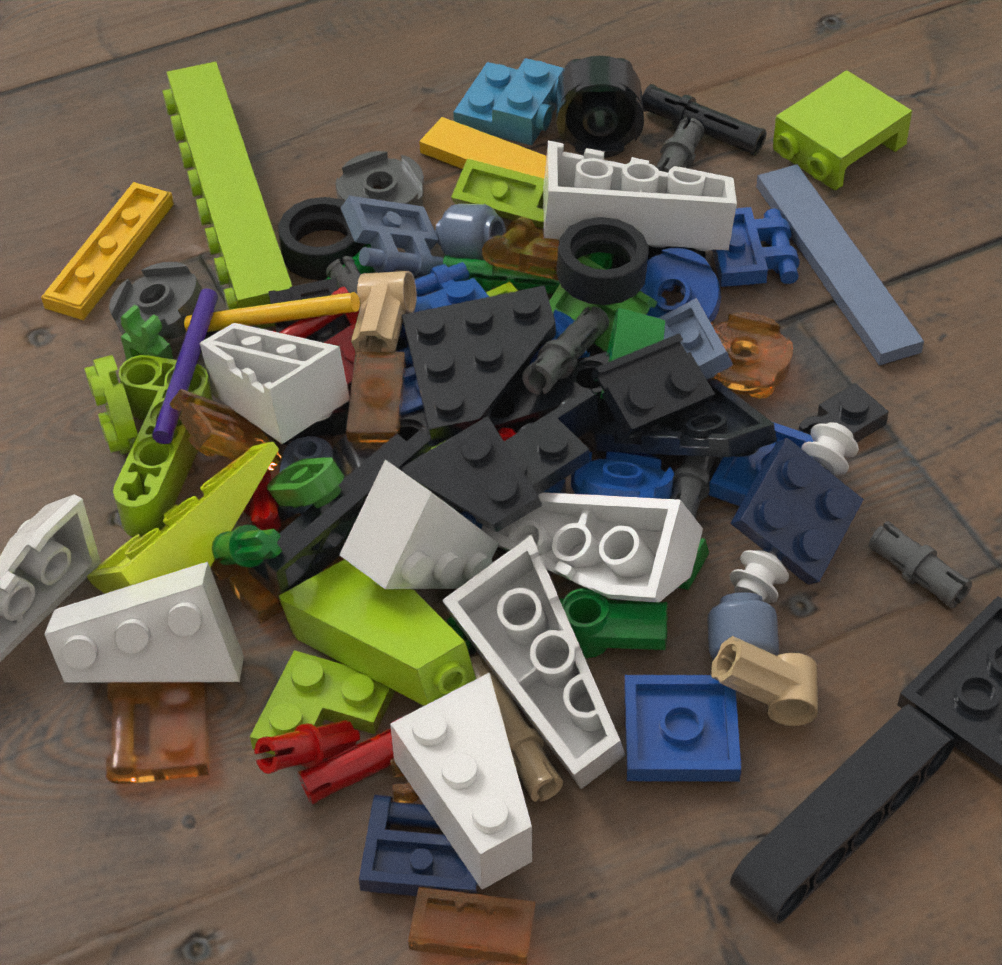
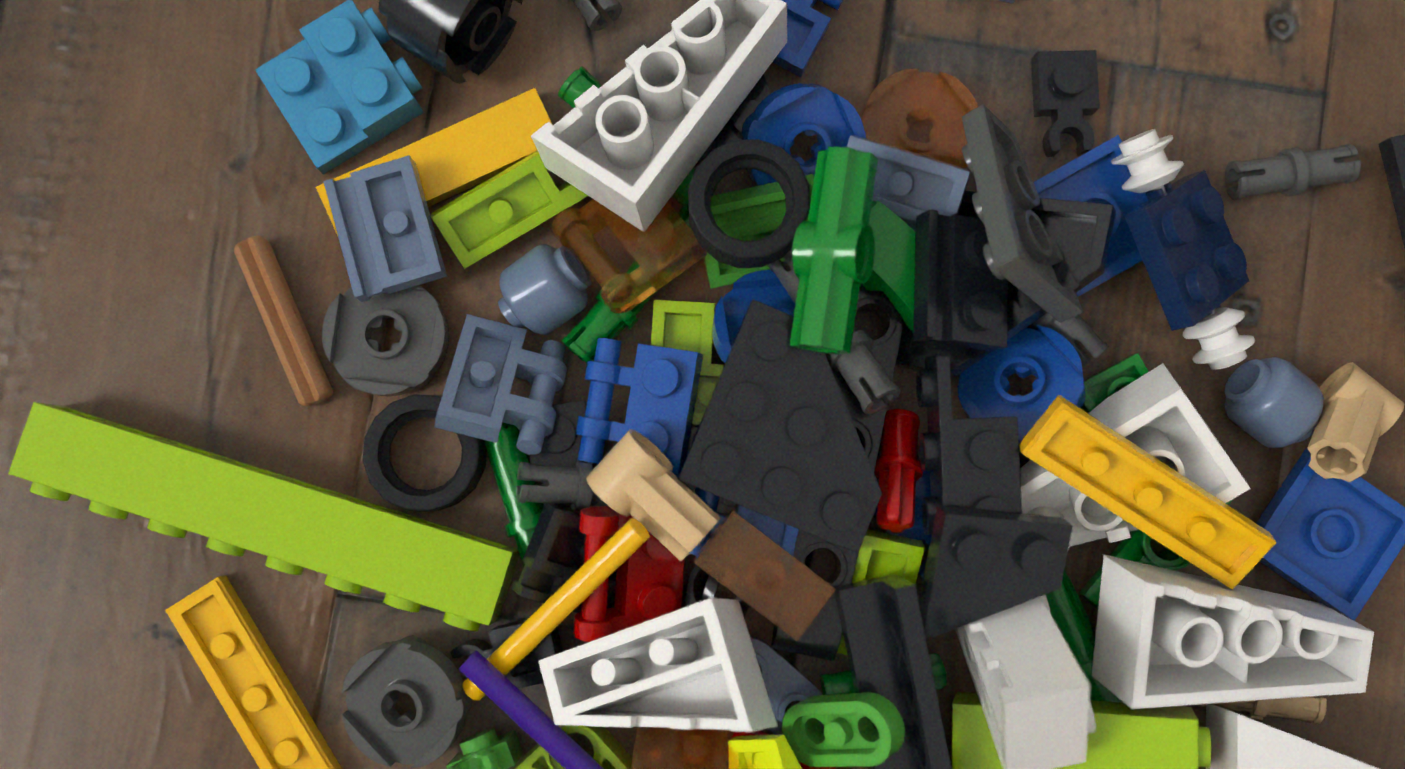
camera: 60 degrees left, 35 degrees up
(348, 146) = (283, 321): none -> medium nougat axle
(442, 145) = (385, 229): none -> sand blue plate
(580, 301) = (834, 251): none -> green piece
(600, 547) = (1146, 492): none -> yellow tile
(713, 375) = (1016, 236): none -> dark grey wing

